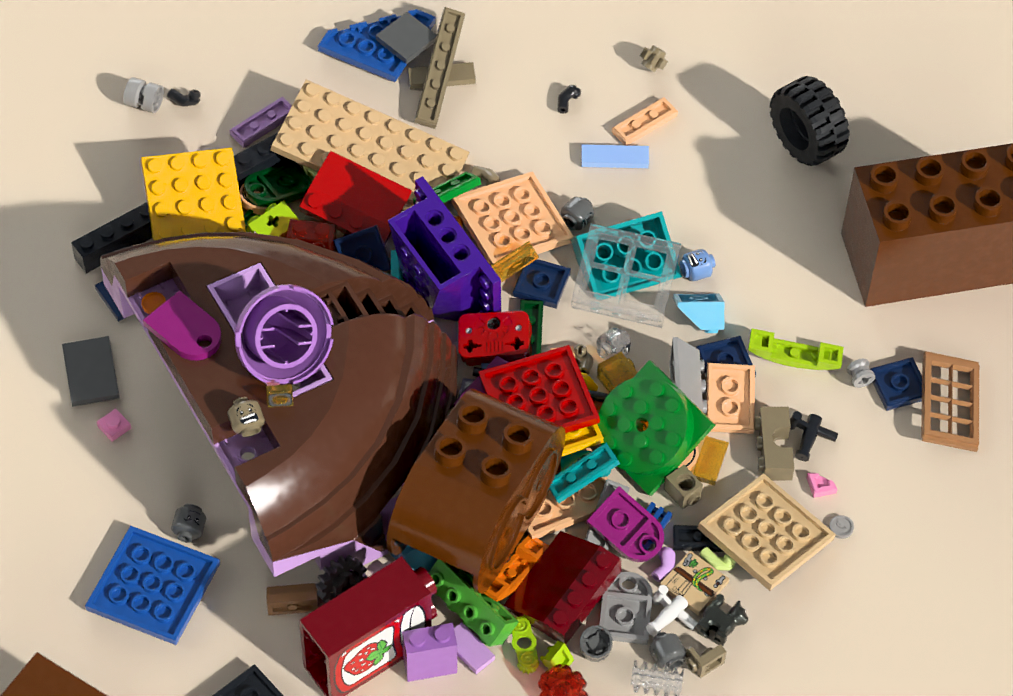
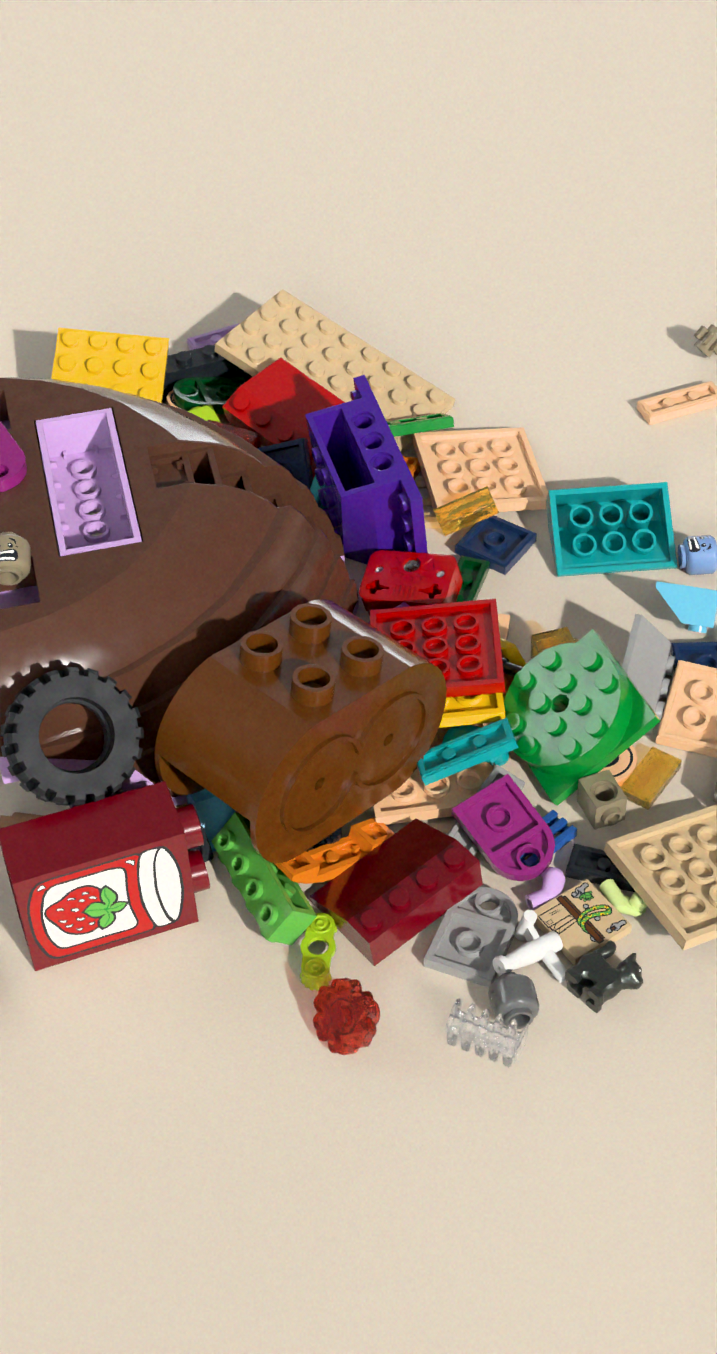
camera: 20 degrees right, 10 degrees down
(147, 96) = (105, 292): light grey wheel -> none
(184, 100) = (148, 306): black arm -> none
(280, 395) = (61, 542): clear yellow tile -> none
(284, 334) = (86, 466): medium lavender cone -> none
(359, 45) = (393, 289): blue plate -> none
(359, 548) = (118, 726): none -> black tyre
(406, 37) = (422, 280): dark grey tile -> none
(429, 652) = (178, 926): medium lavender brick -> none
(439, 68) = (448, 313): dark tan tile -> none
(460, 75) = (451, 325): dark tan tile -> none
(471, 649) = (242, 939): lavender tile -> none
(486, 173) = (465, 422): dark tan arm -> none
(557, 655) = (358, 968): lime tile -> none
(571, 91) = (588, 365): black arm -> none
(577, 213) = (564, 474): dark grey head -> none
(583, 358) = (518, 630): dark tan arm -> none
(596, 643) = (412, 965): dark grey wheel -> none
(612, 343) = (560, 615): clear head -> none
(615, 156) = (632, 430): light blue tile -> none
(618, 306) = (581, 580): clear window -> none
(707, 662) = (567, 1026): dark tan bracket -> none

